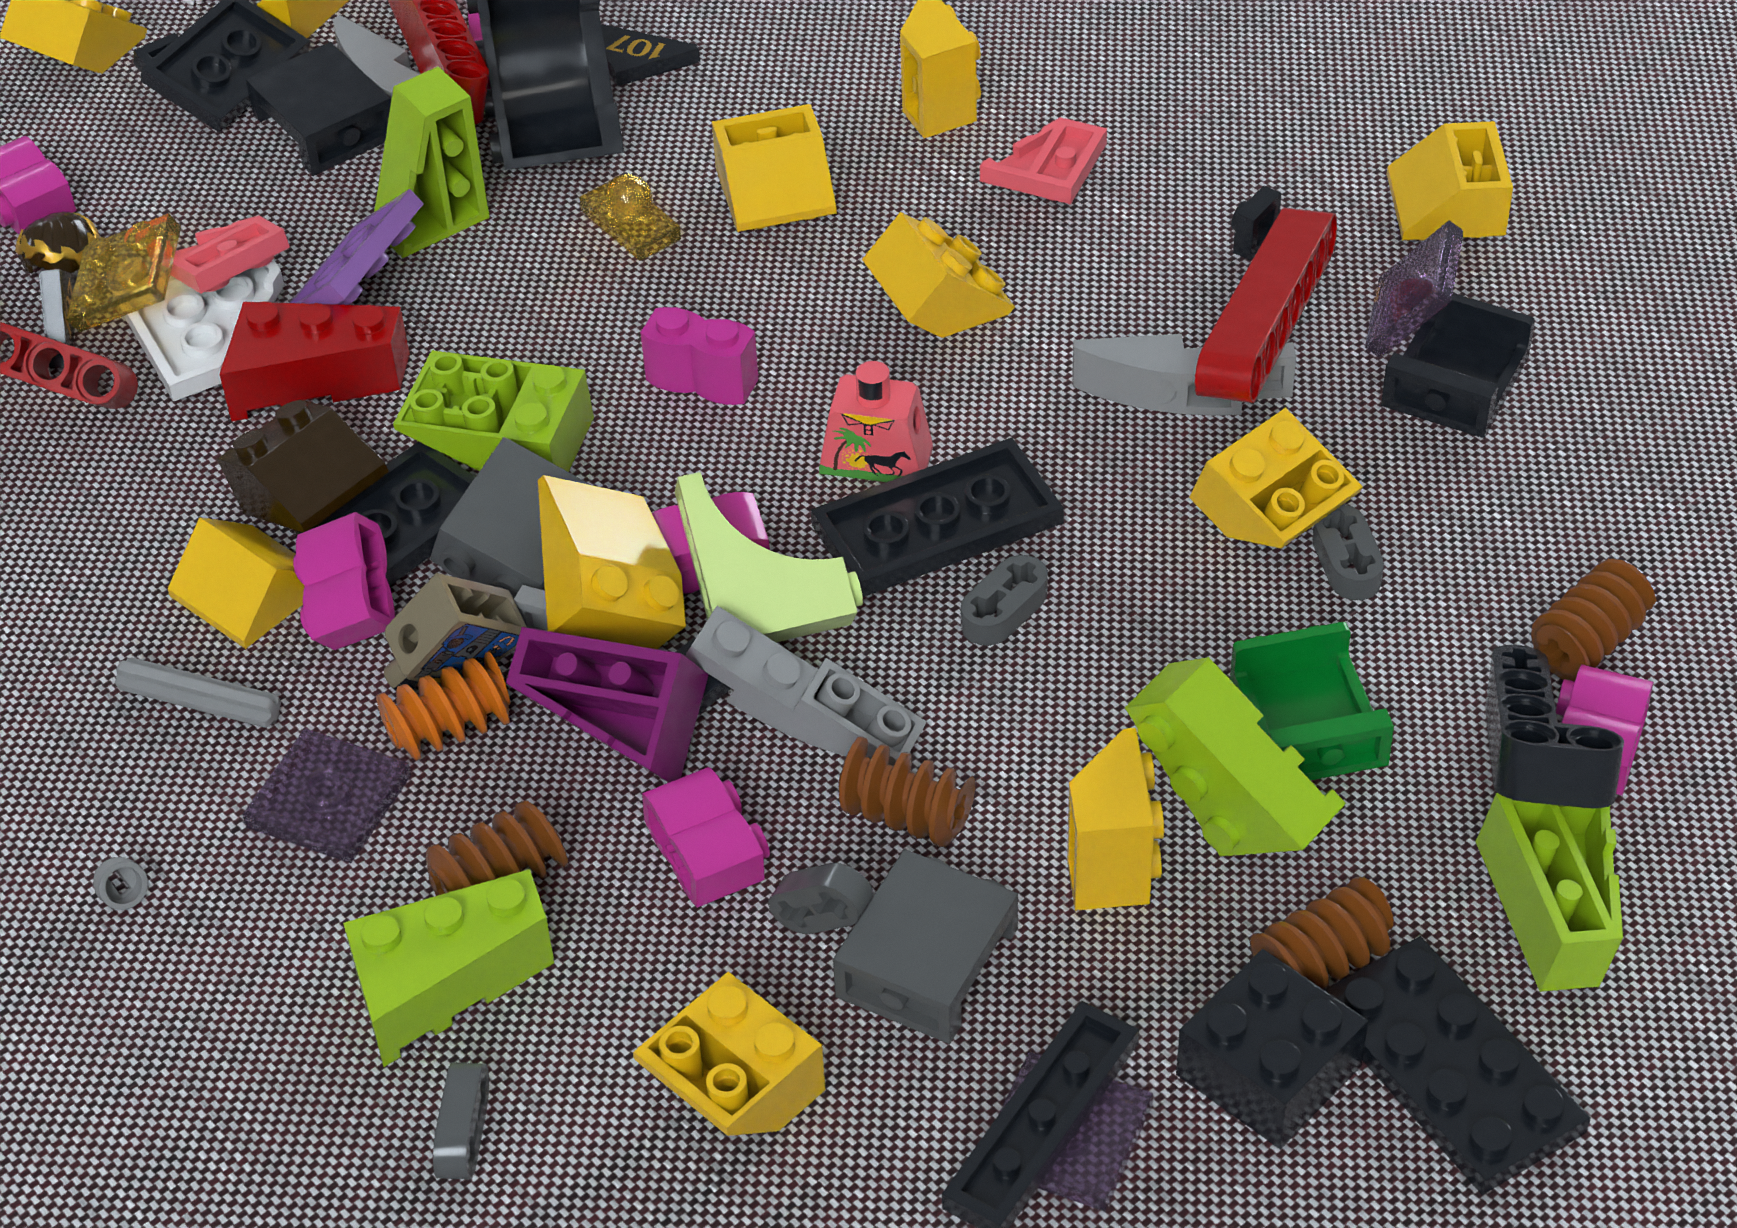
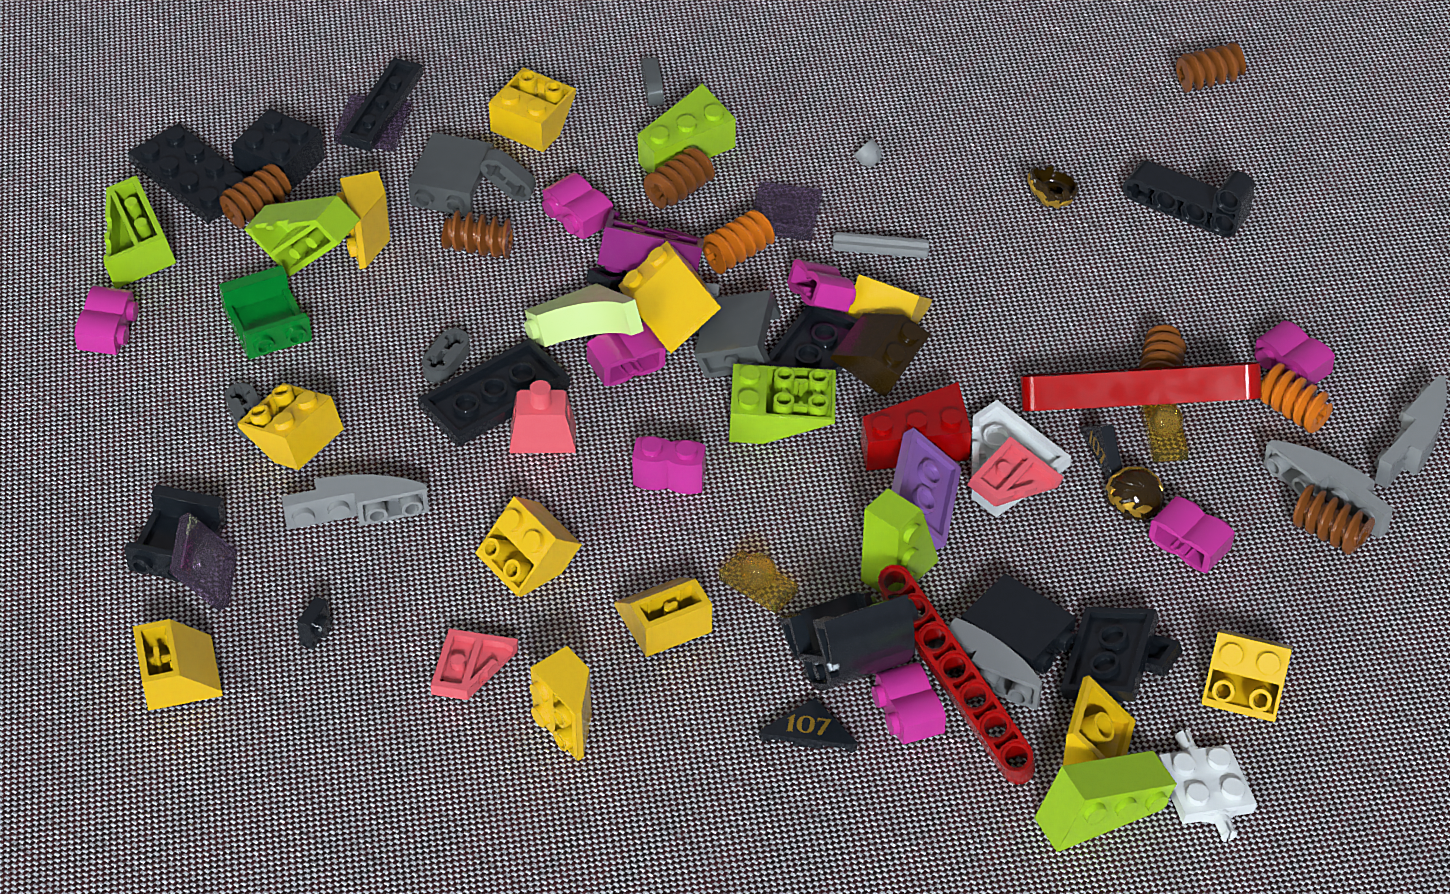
camera: 165 degrees right, 0 degrees up
(124, 272) = (1067, 455): clear yellow plate -> none
(450, 624) = (743, 258): dark tan torso -> none
(787, 693) = (537, 278): light grey slope -> none
(1266, 306) = (299, 524): red beam -> none
(1533, 753) = (143, 284): black beam -> none
(1593, 617) = (105, 370): dark orange piece -> none

